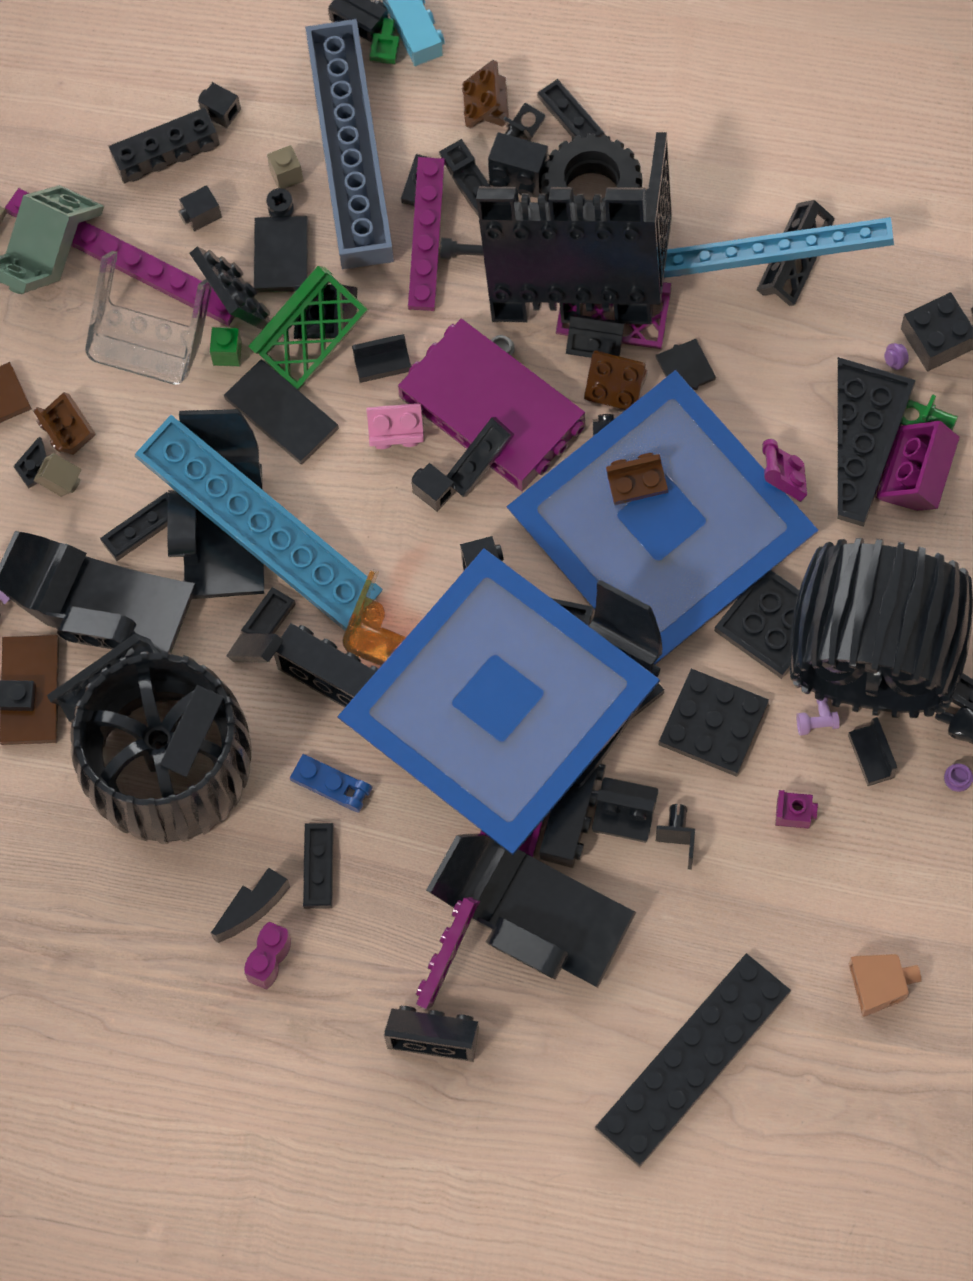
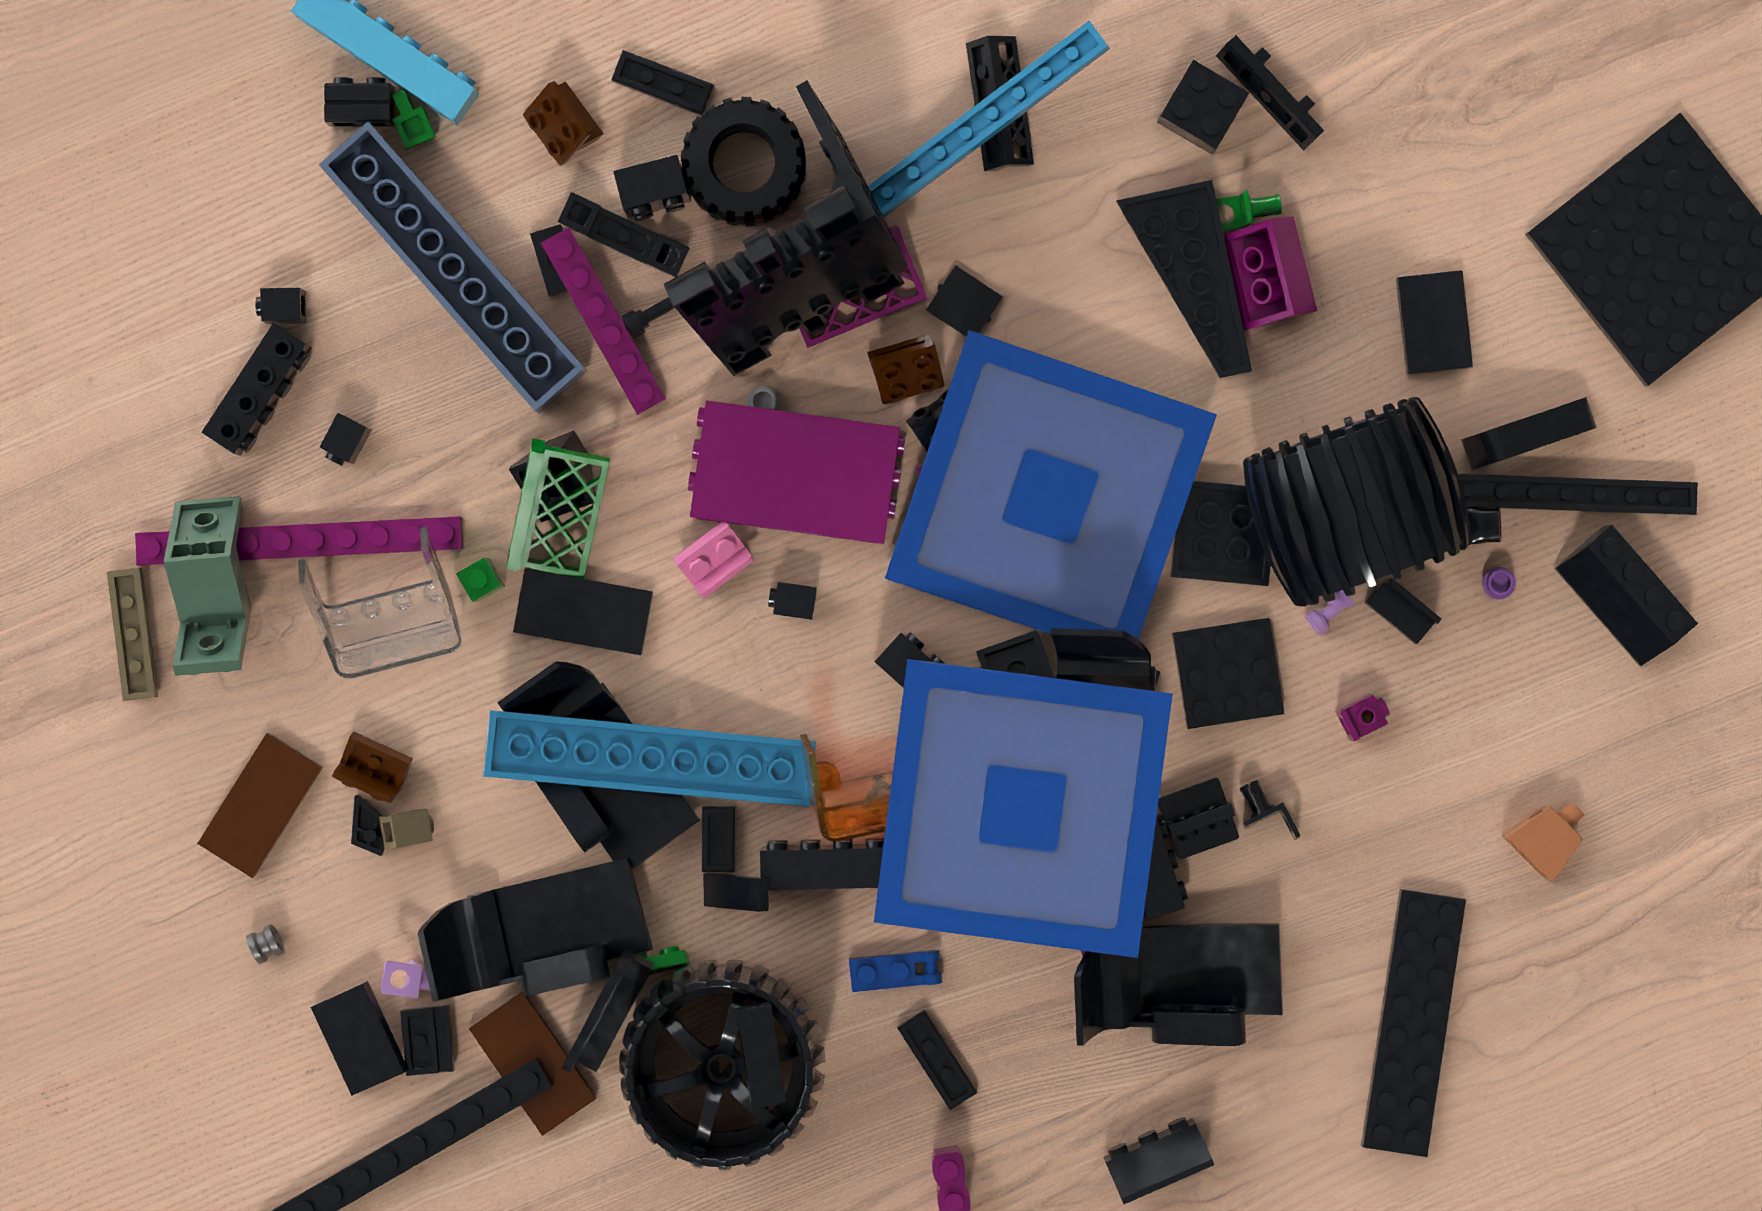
camera: 35 degrees left, 20 degrees up
(137, 528) = (523, 829): black tile -> none
(231, 288) = (449, 520): black plate -> none
(250, 905) = (901, 1142): black slope -> none
(280, 253) = (463, 435): black tile -> none
(283, 209) = (432, 381): black wheel -> none
(285, 167) = (404, 337): dark tan brick -> none
(381, 358) = (650, 492): black panel -> none
(451, 942) = (1122, 1065): magenta plate -> none
(480, 456) = (824, 543): black tile -> none
(517, 129) = (620, 138): black bracket -> none
(594, 334) = (855, 333): black plate -> none
(636, 478) = (1003, 474): reddish brown bracket -> none
(784, 470) = (1143, 368): magenta plate -> none
(896, 356) = (1174, 161): medium lavender plate -> none

